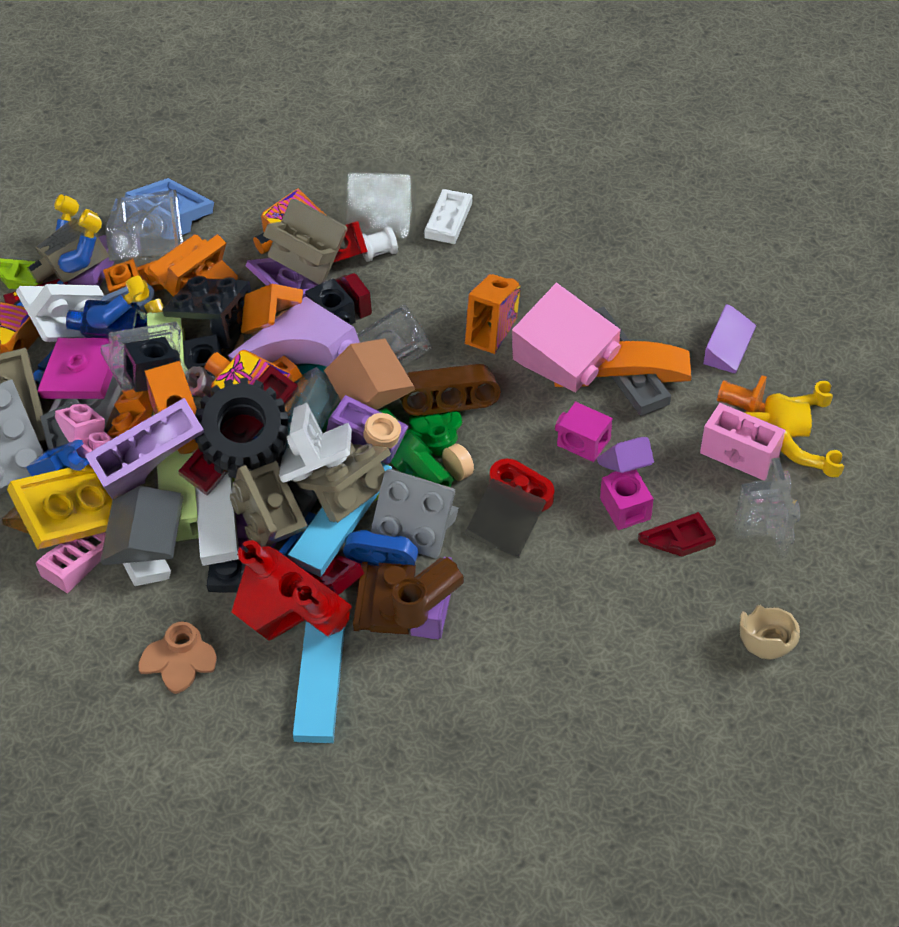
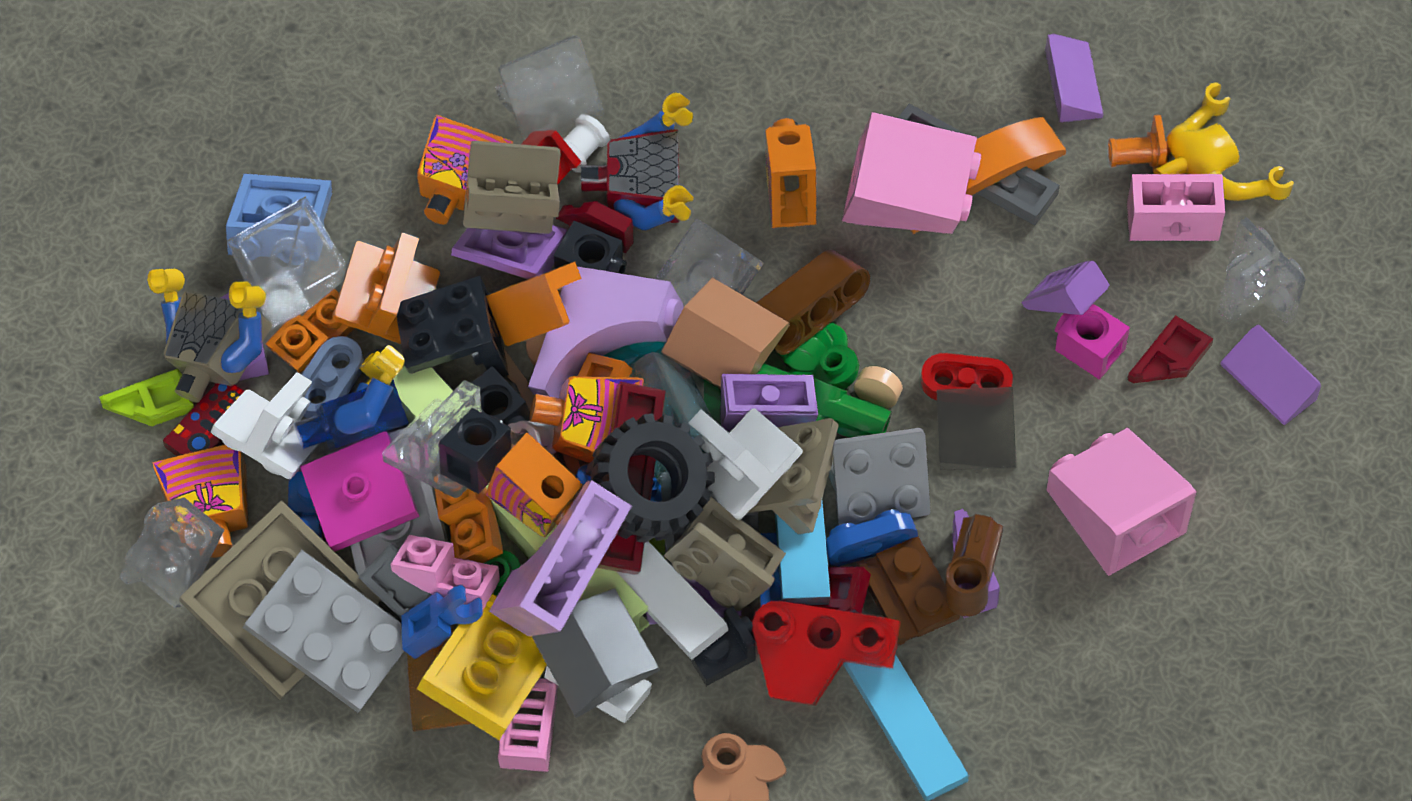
camera: 30 degrees left, 10 degrees up
(382, 430) = (796, 398): light nougat tile -> none
(404, 273) = (645, 169): none -> torso
(448, 216) = (637, 62): white plate -> none
(571, 609) = (1121, 498): none -> bright pink slope
(583, 431) = (991, 278): dark pink brick -> none
(742, 580) = (1272, 375): none -> medium lavender slope
(777, 627) = (1346, 420): tan hair -> none

